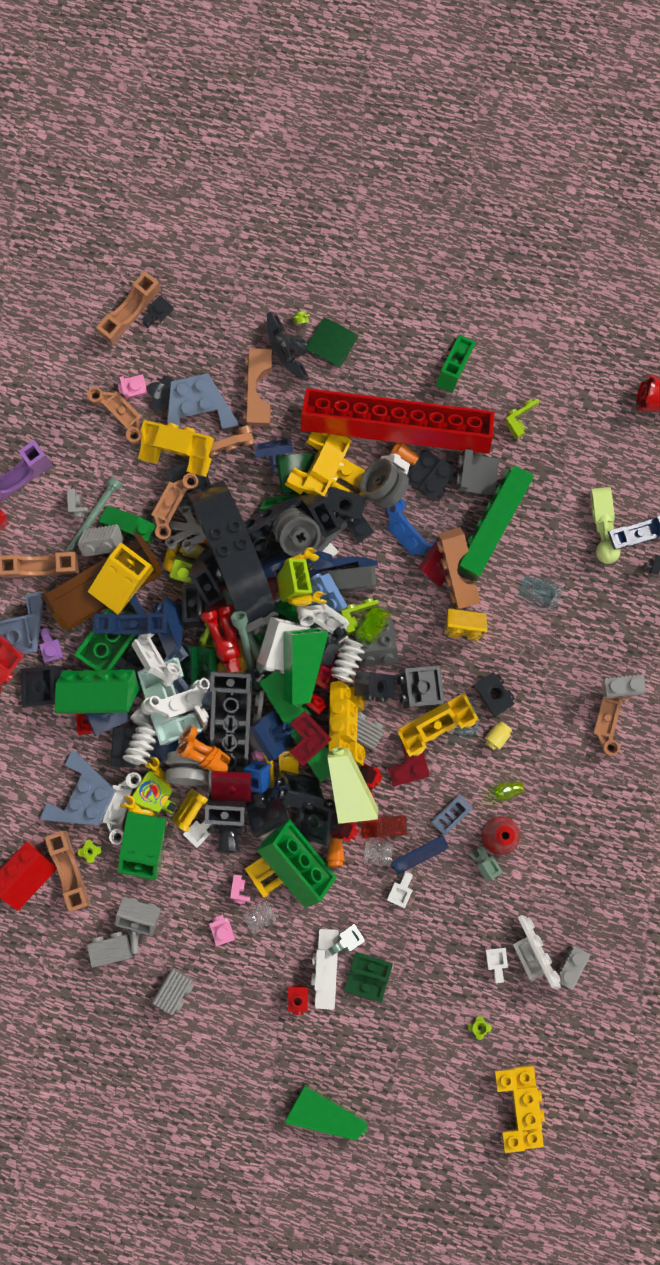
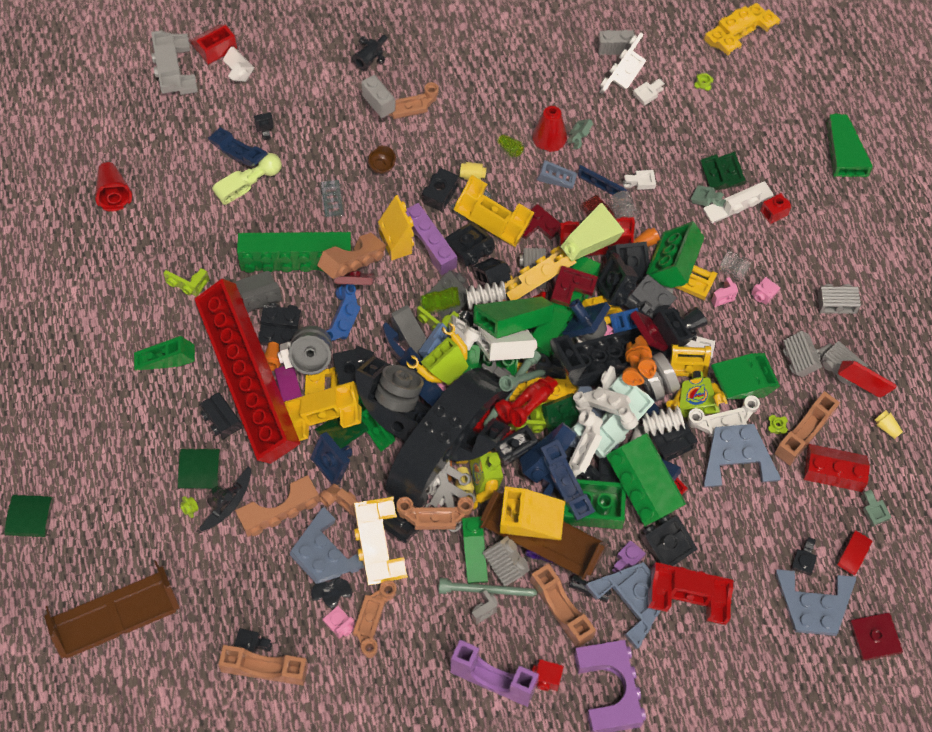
camera: 125 degrees left, 20 degrees down
(32, 949) = (888, 424): none -> light yellow cone
(80, 954) = (866, 378): none -> red slope
(243, 216) = (112, 614): none -> reddish brown piece
(366, 190) = (28, 516): none -> dark green slope
(366, 452) = (288, 383): none -> magenta slope
(371, 381) = (220, 415): none -> black brick
(445, 653) = (439, 250): none -> medium lavender arch
(556, 656) = (382, 159): none -> reddish brown hair

